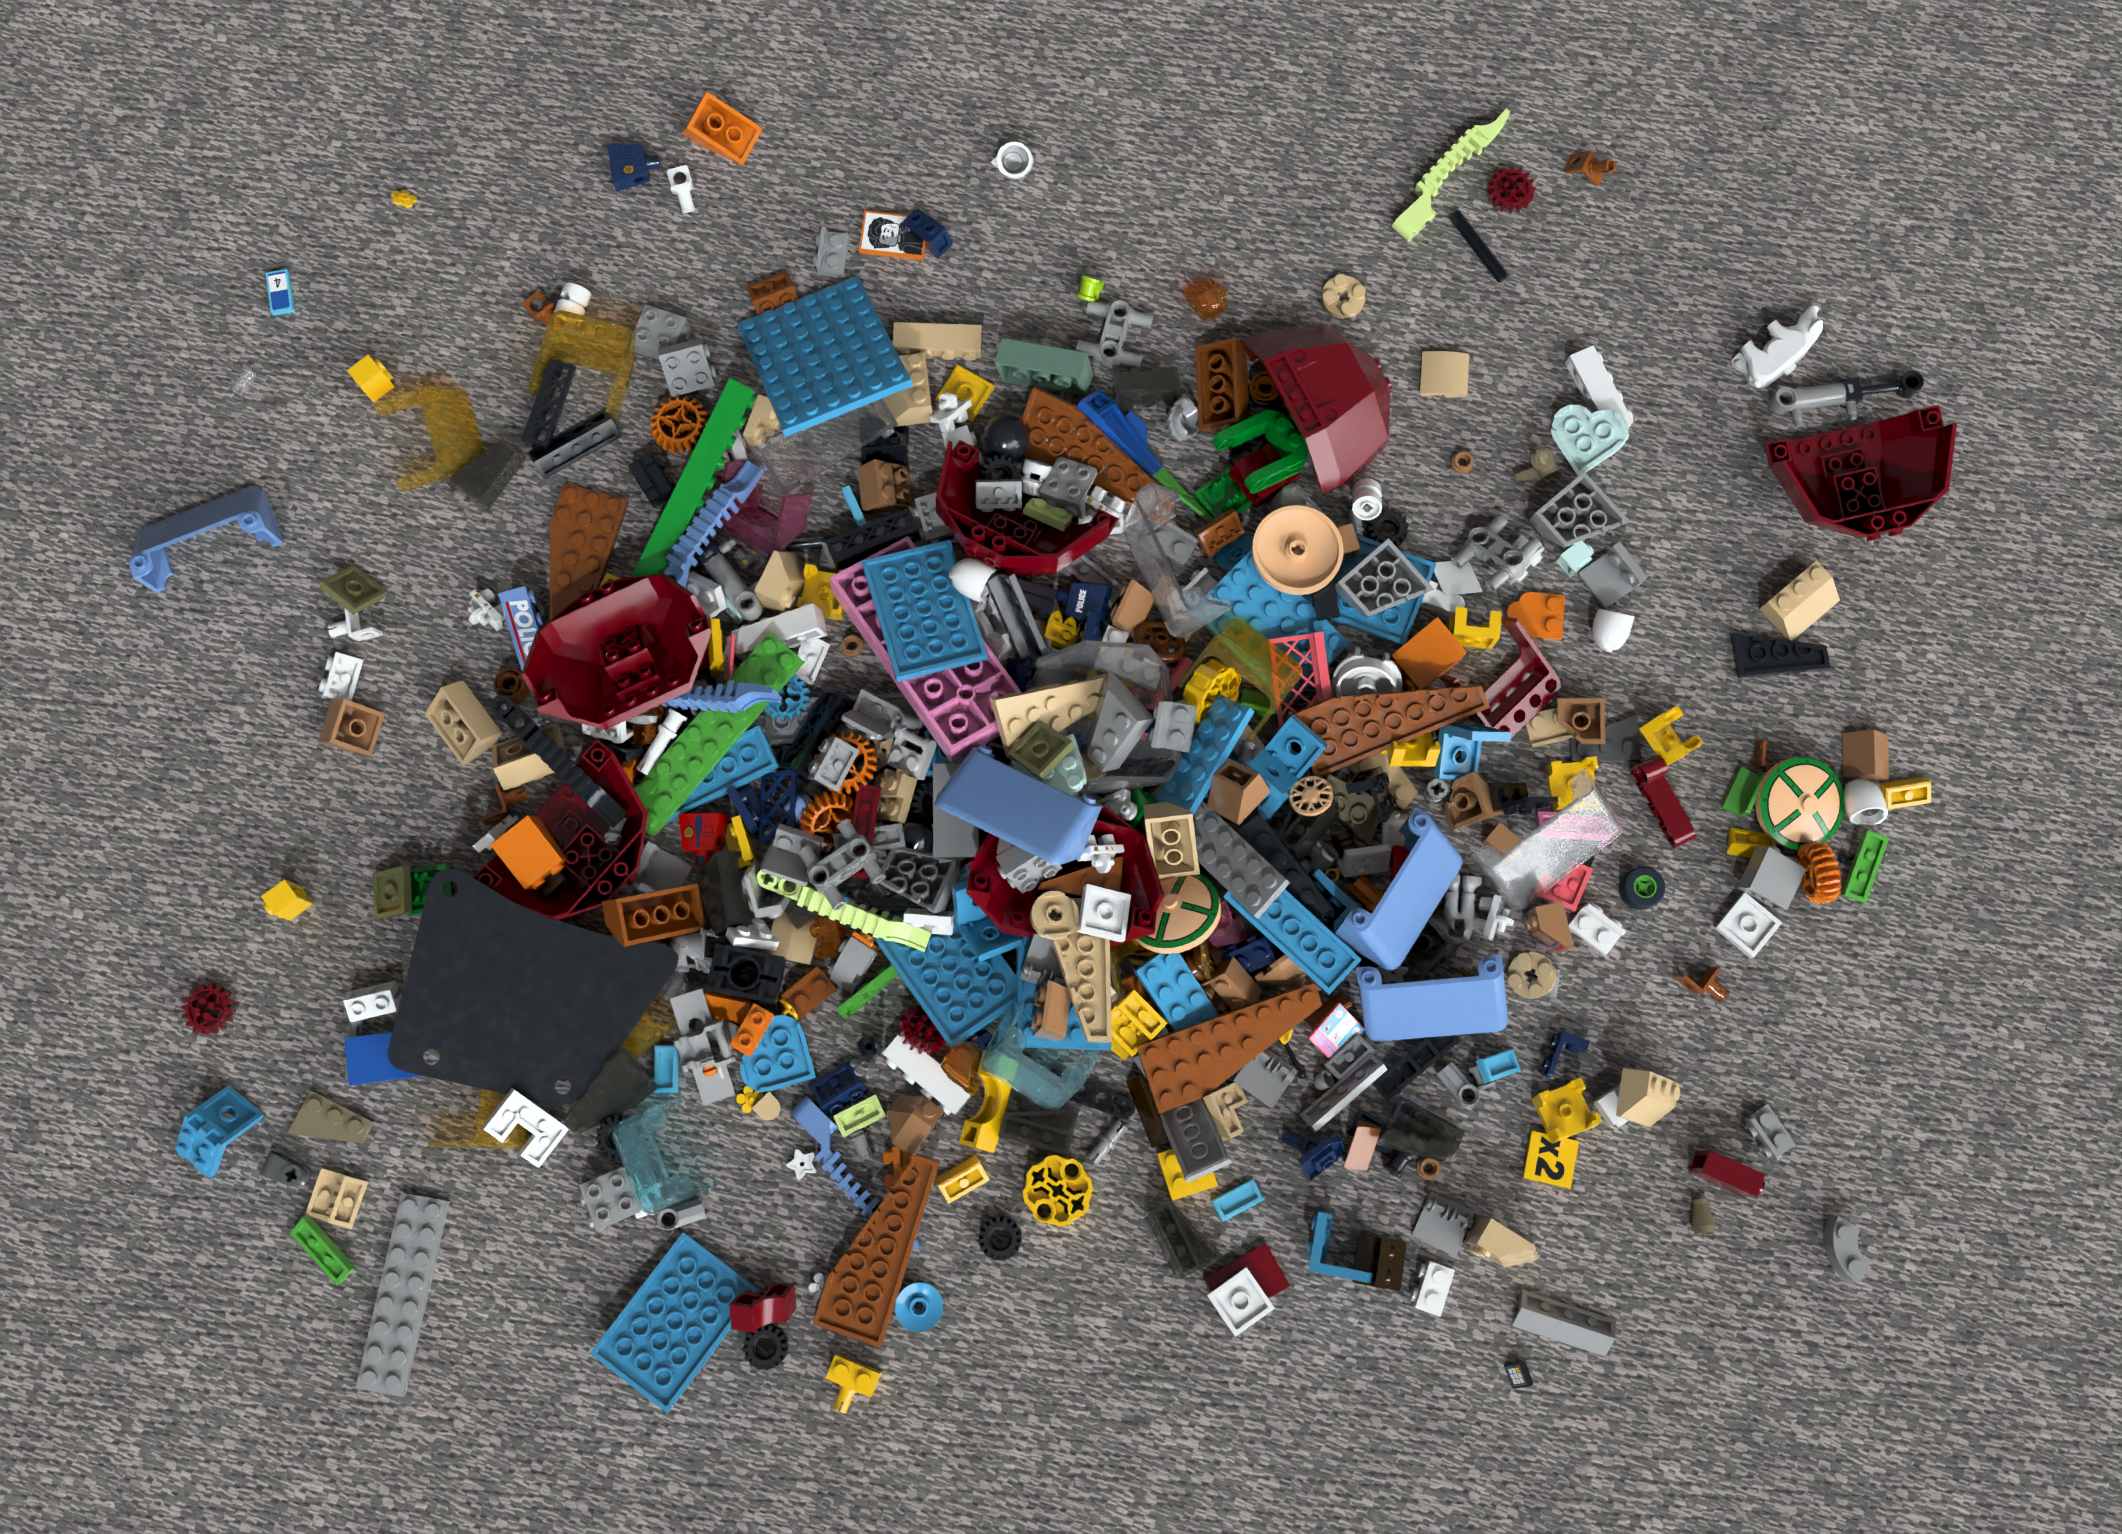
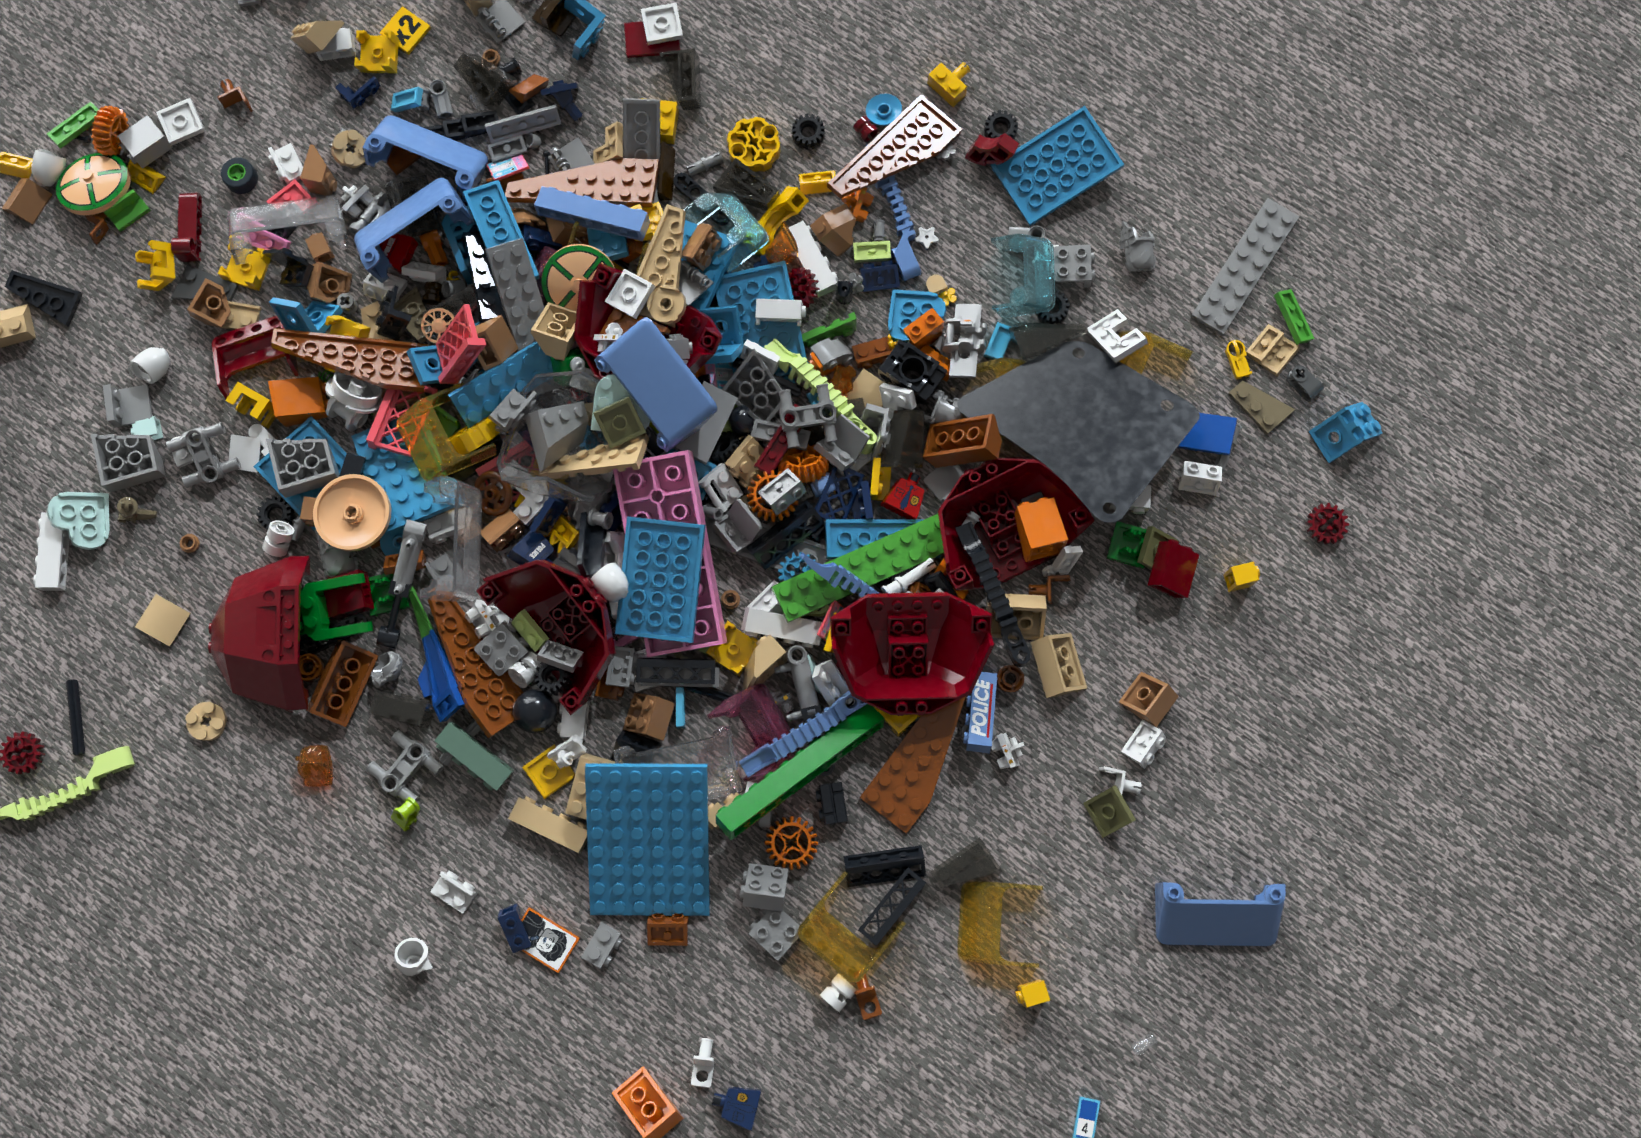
camera: 155 degrees left, 0 degrees up
(367, 877) = (1173, 569): none -> dark red brick
(371, 1163) = (1239, 362): none -> yellow piece
(537, 1251) = (1137, 249): none -> light grey helmet
(930, 982) = (780, 310): none -> white brick
(931, 1272) = (865, 128): none -> dark red wheel
(1005, 242) = (454, 892): none -> white bracket
(1023, 654) = (599, 518): none -> light grey bush
(1197, 997) = (592, 213): none -> medium blue brick
(1207, 506) = (403, 579): none -> light grey piece
(1237, 1199) = (632, 90): medium azure tile -> none
(1259, 755) = (458, 349): none -> coral fence
(1539, 614) = (199, 401): orange plate -> none

